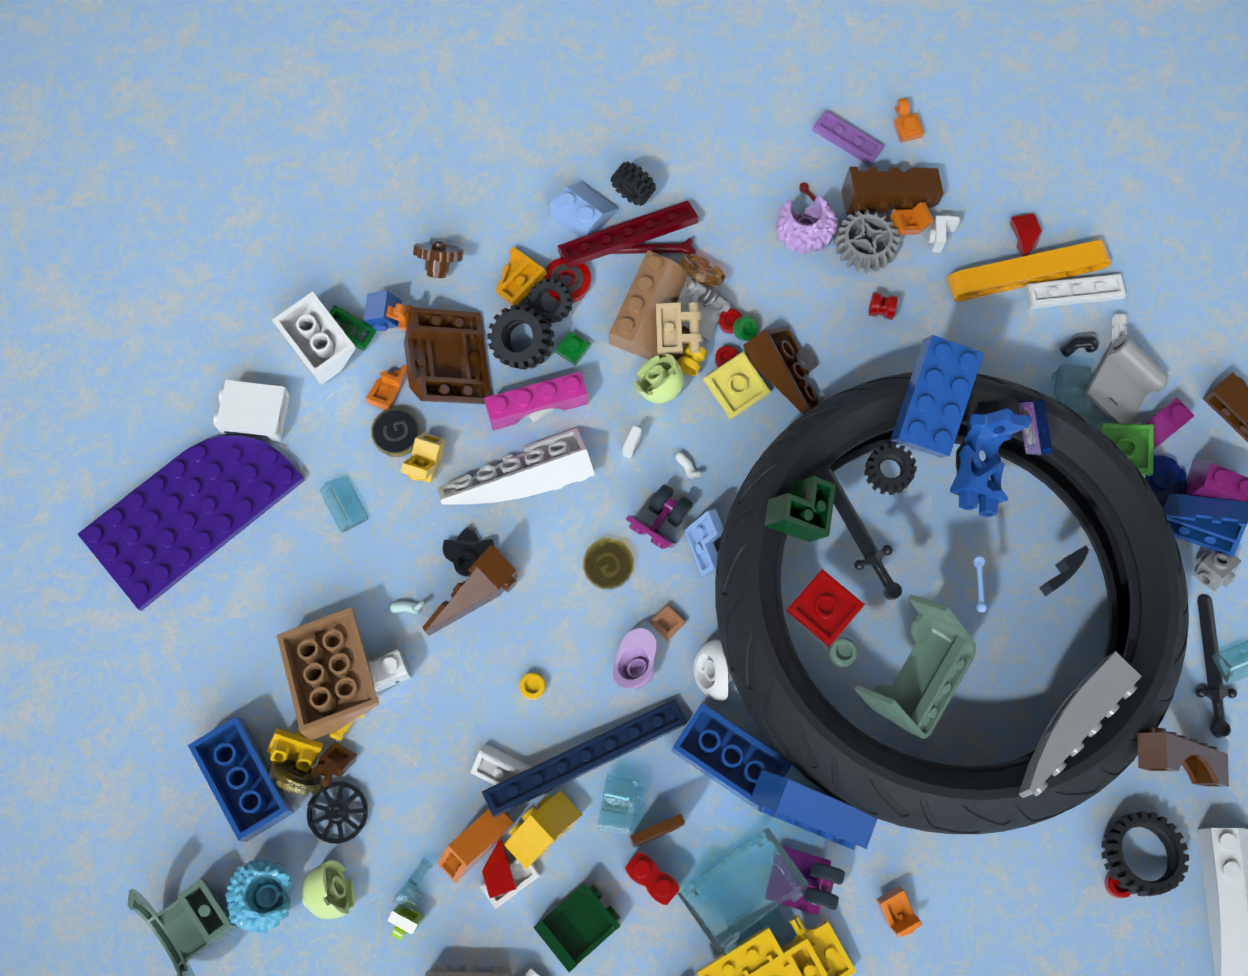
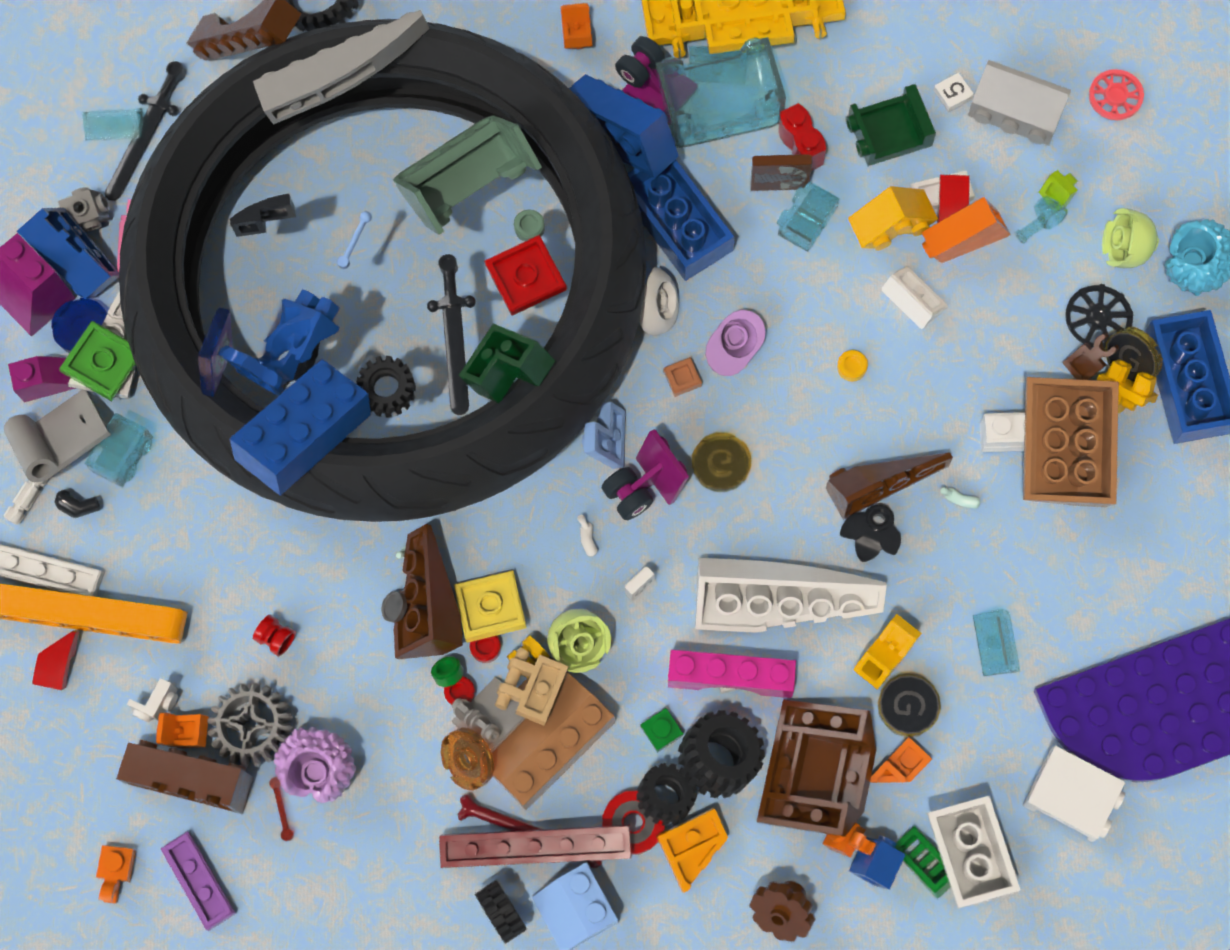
camera: 150 degrees left, 0 degrees up
(583, 758) = (825, 268): dark blue tile -> none

